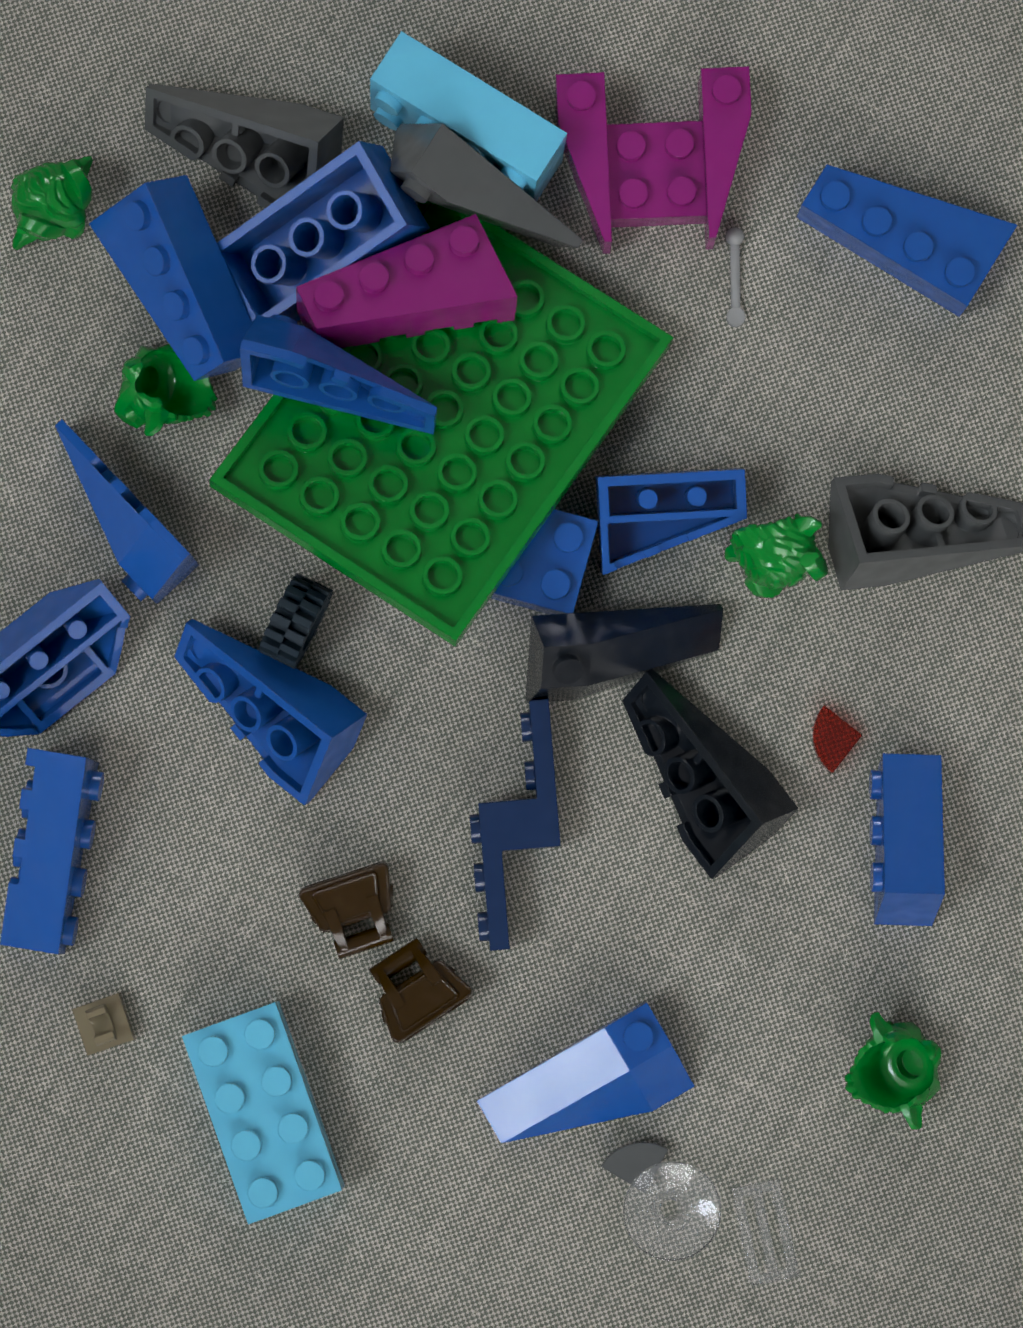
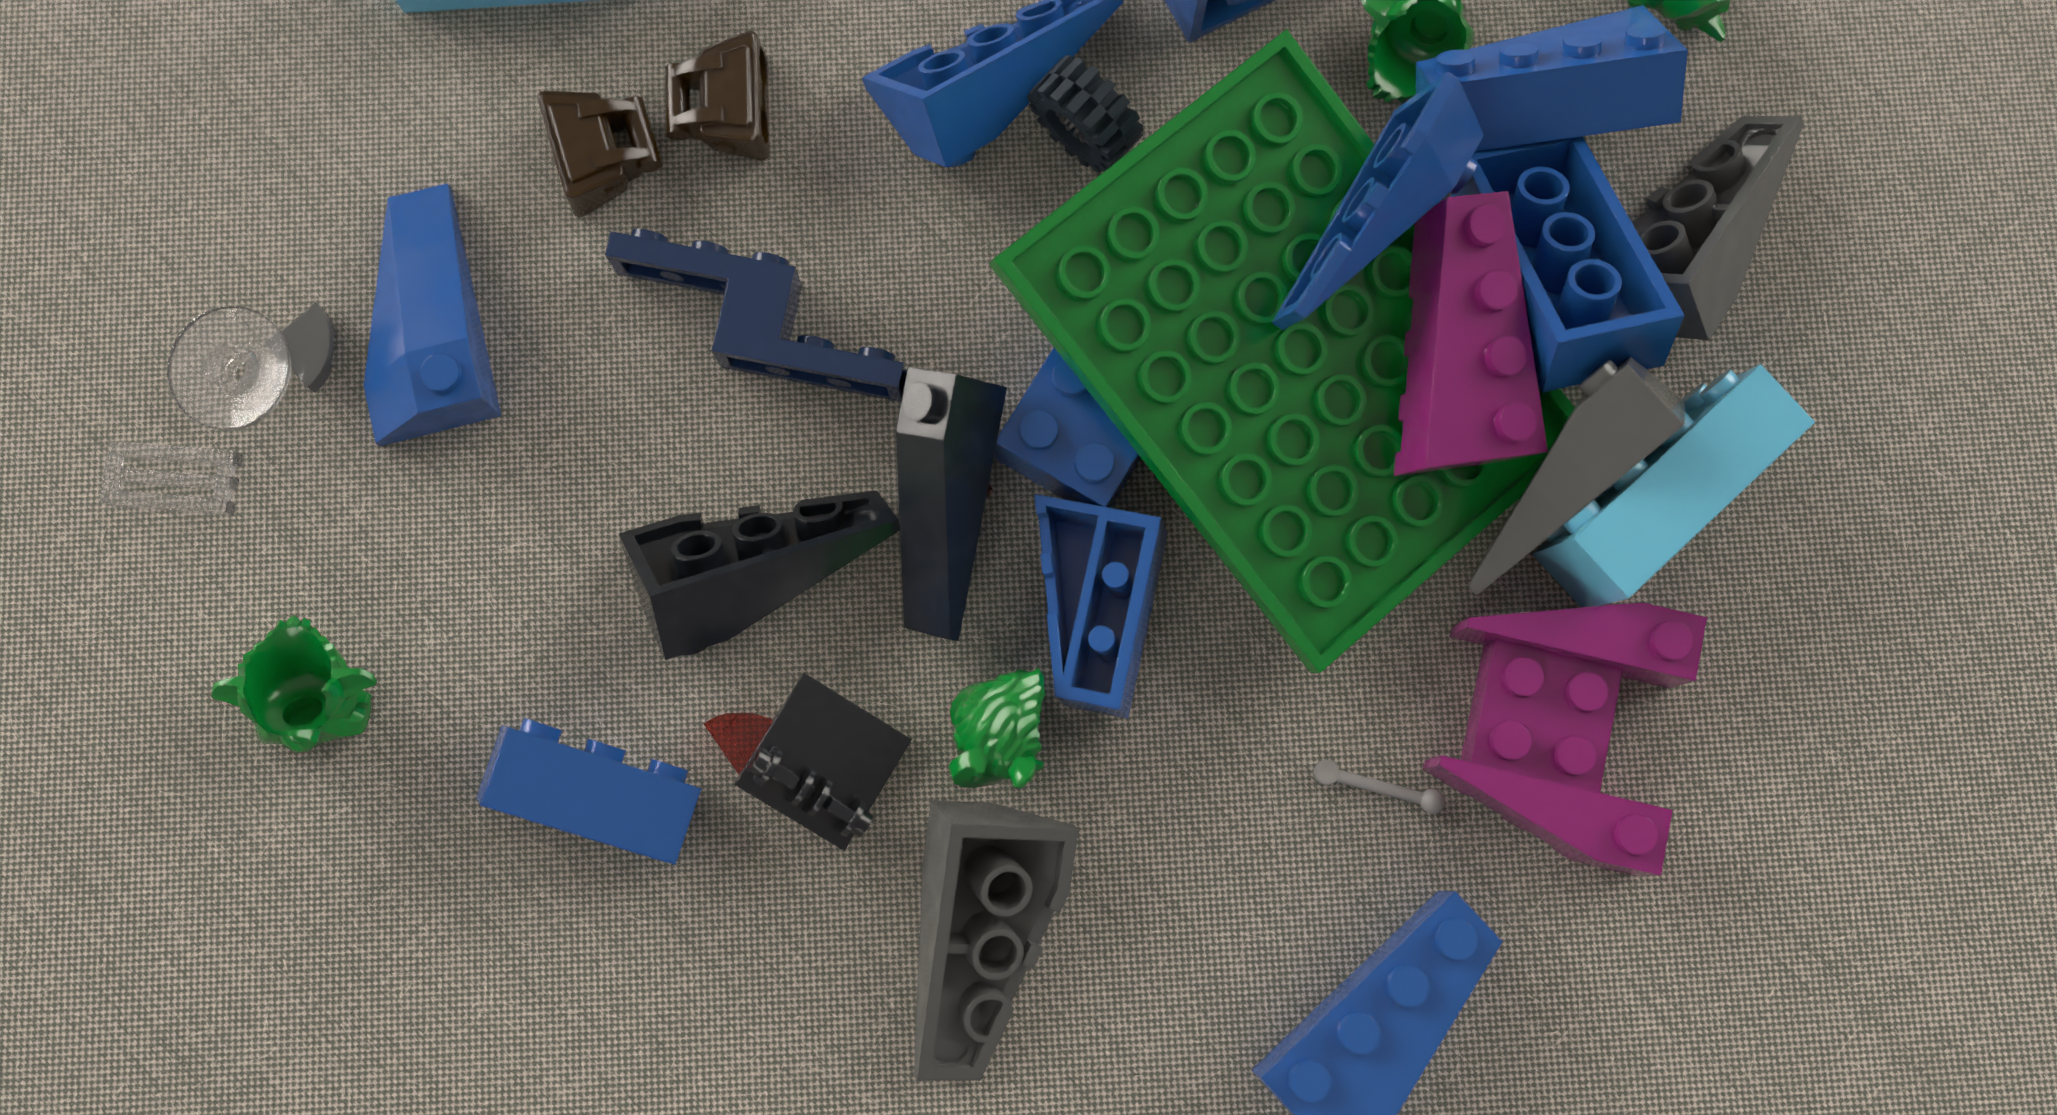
camera: 105 degrees right, 5 degrees down
(836, 675) = (823, 762): none -> black hinge

